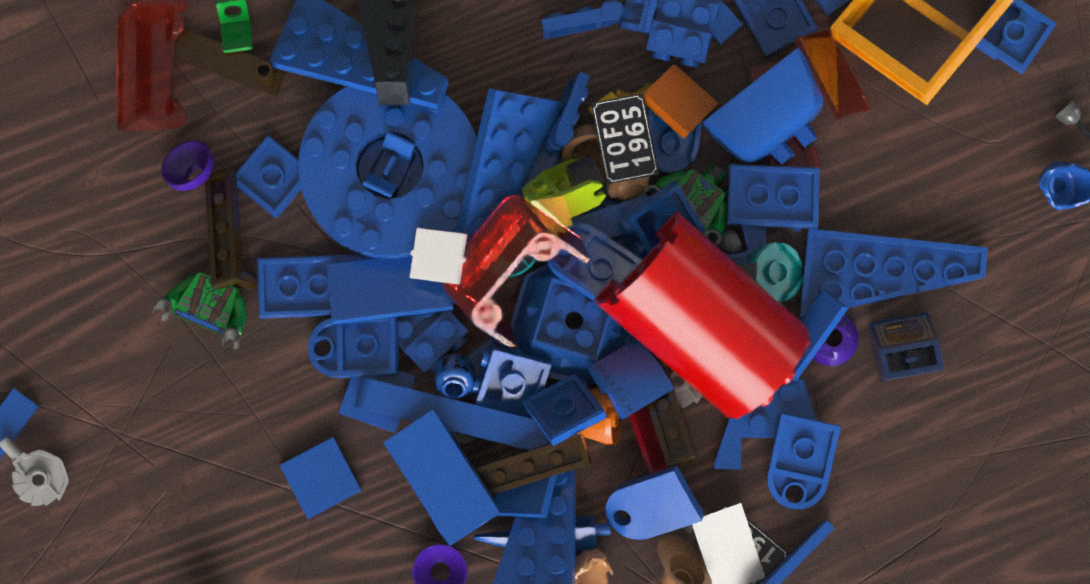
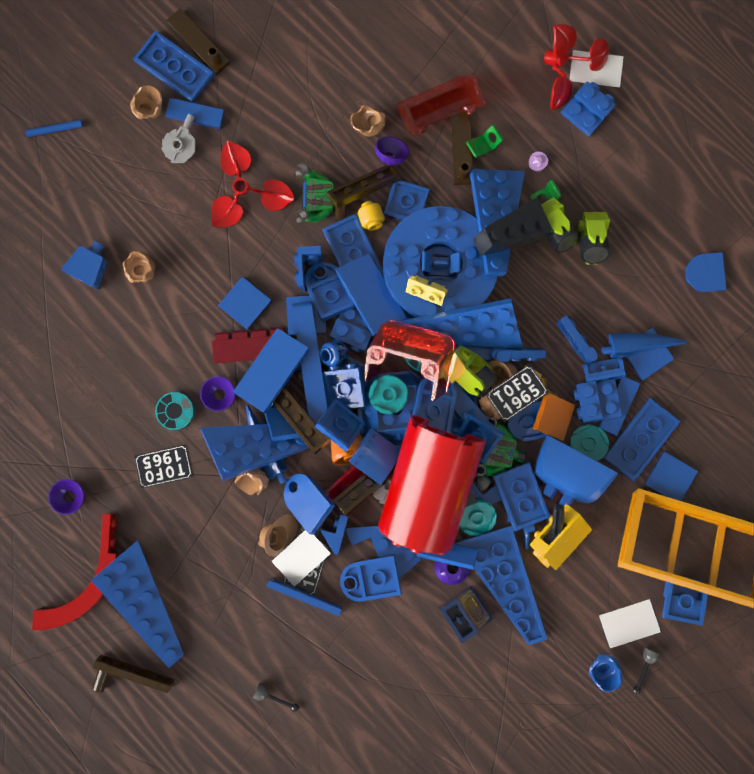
camera: 75 degrees right, 0 degrees up
(128, 181) = (368, 121): none -> medium nougat hair
(170, 448) = (225, 210): none -> red plant
(272, 237) = (371, 216): none -> yellow head
(295, 349) = (308, 254): none -> blue bracket
(384, 509) = (240, 346): none -> dark red windscreen
(432, 194) = (419, 287): none -> light yellow hinge
(438, 256) = (399, 312): white piece -> none
(550, 322) = (388, 394): none -> teal tile
(722, 487) = (335, 539): none -> blue slope
(736, 66) = (590, 441): none -> teal tile
(825, 211) = (527, 530): none -> blue hand
(832, 74) = (610, 501): clear red piece -> none
(852, 167) = (560, 536): none -> yellow piece
(1013, 122) = (629, 623): none -> white sticker

